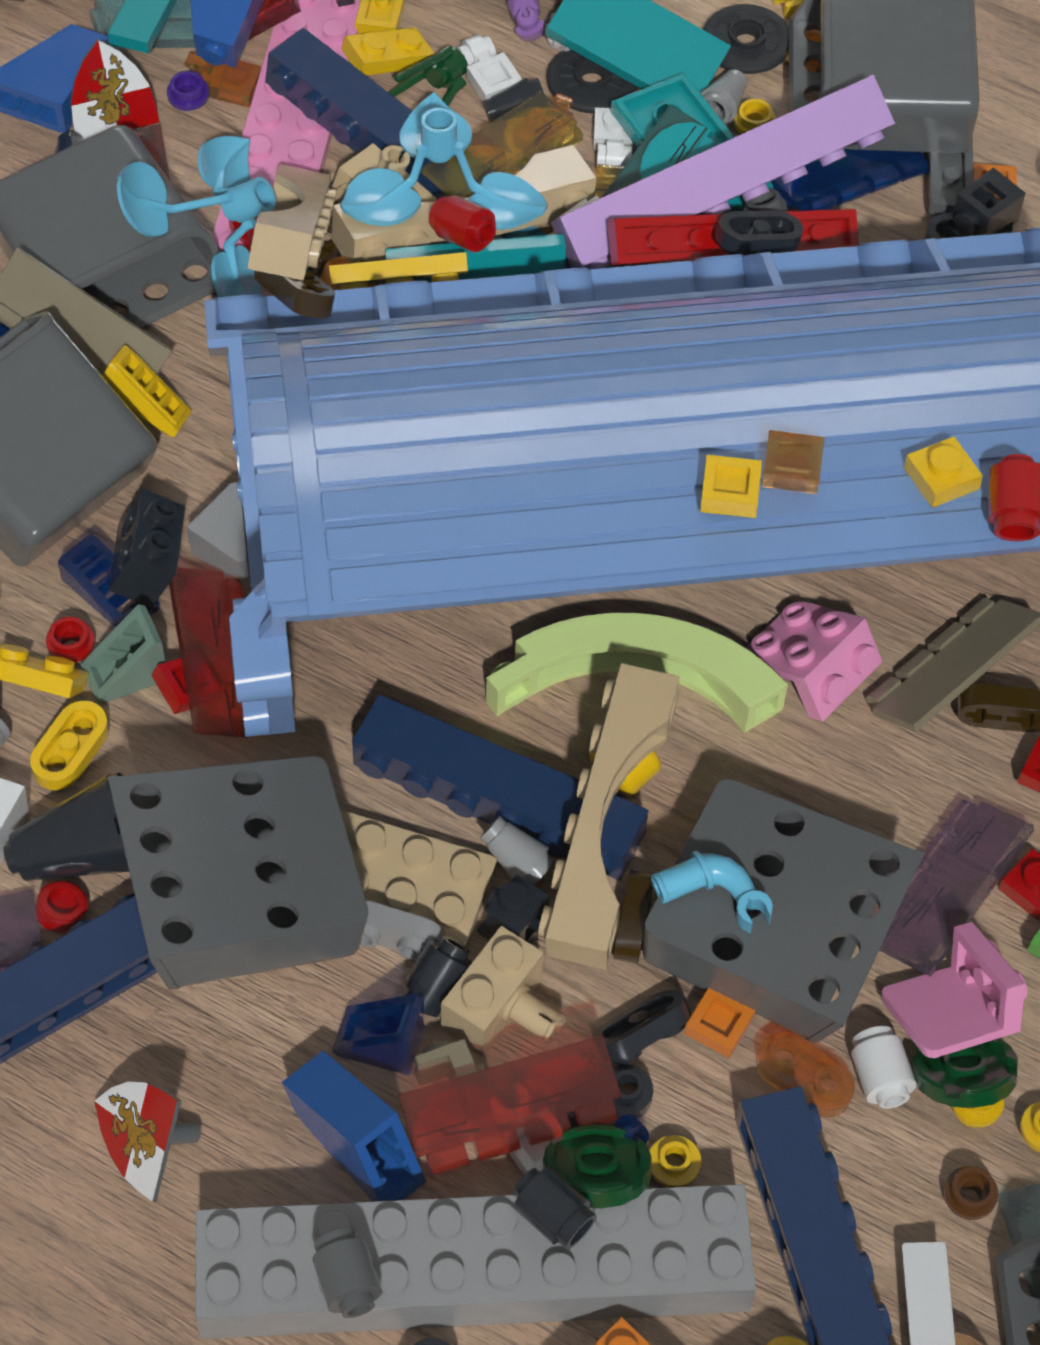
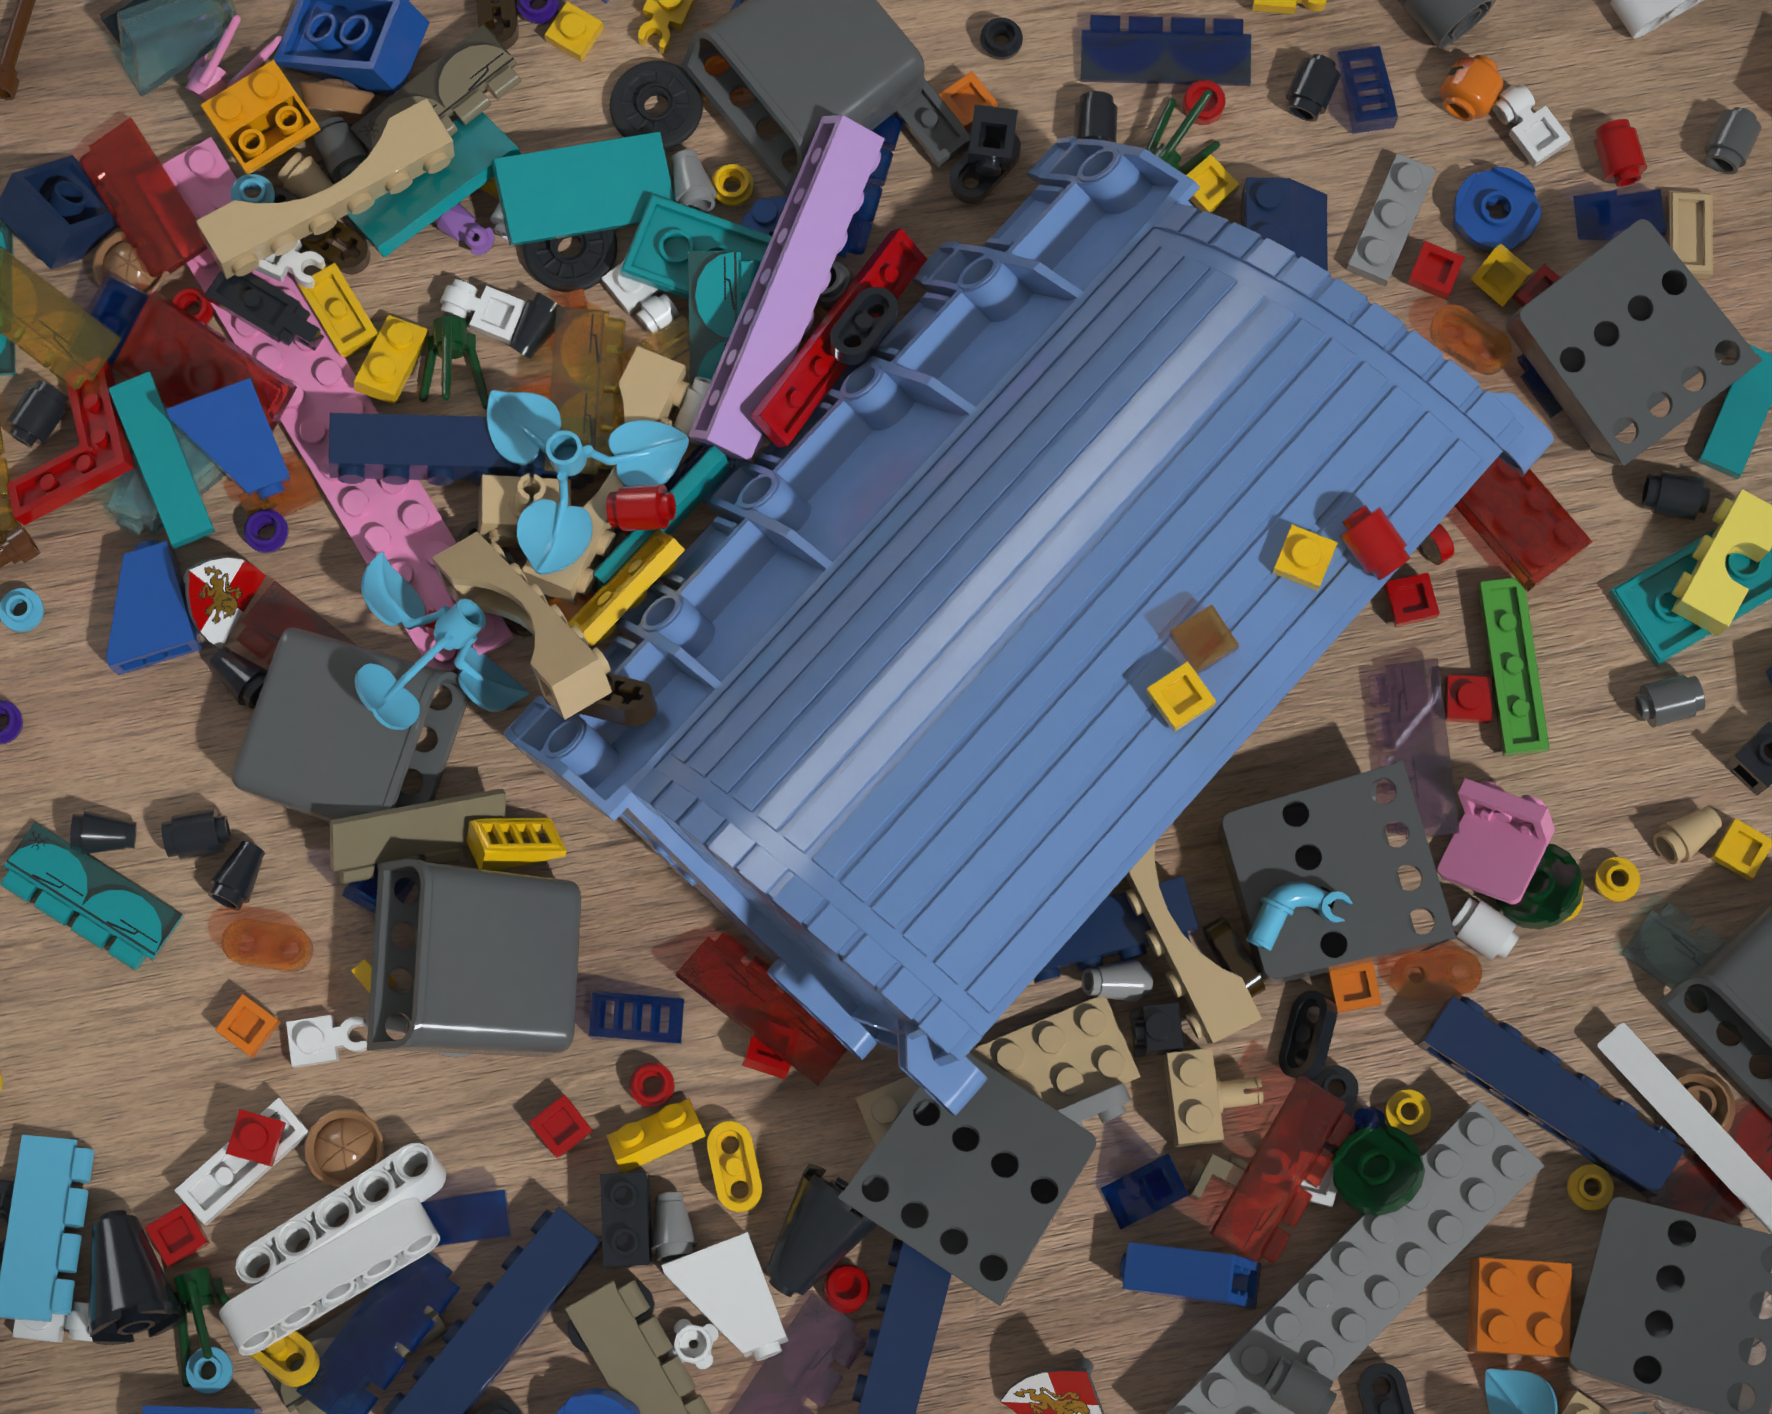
camera: 40 degrees left, 20 degrees up
(125, 658) = (709, 1069): sand green slope -> none
(147, 548) = (647, 971): black brick -> none
(220, 536) = (683, 908): light grey slope -> none
(437, 972) = (1149, 1120): black brick -> none
(553, 1207) = (1387, 1230): black brick -> none
(975, 1179) = (1615, 959): reddish brown plate -> none

